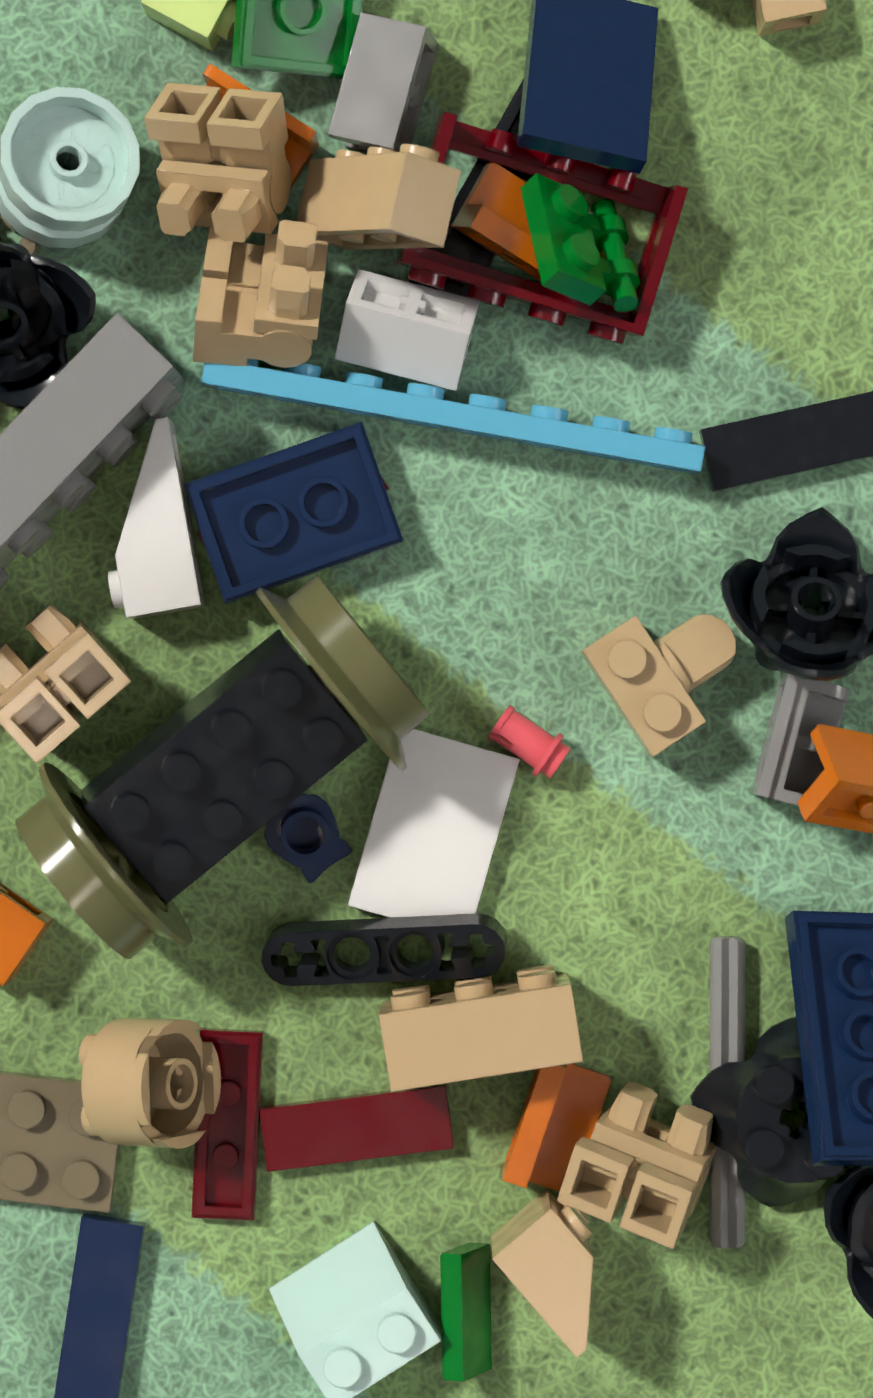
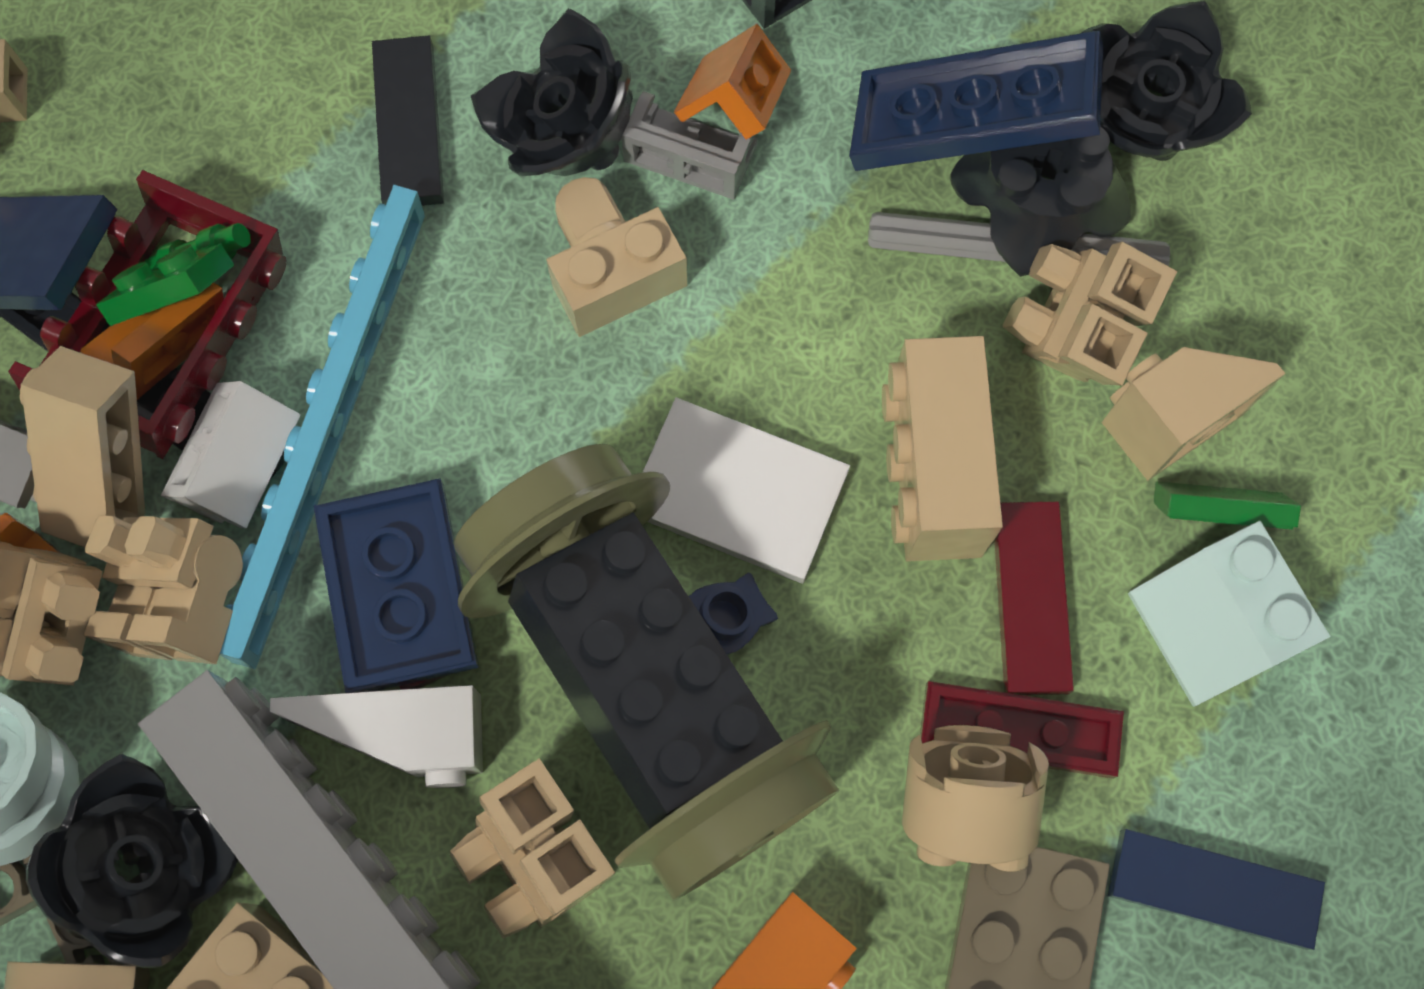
camera: 80 degrees left, 15 degrees down
(386, 960) = (863, 546): black beam -> none
(529, 742) = (661, 386): coral pin -> none
(556, 1114) = (1045, 406): orange panel -> none

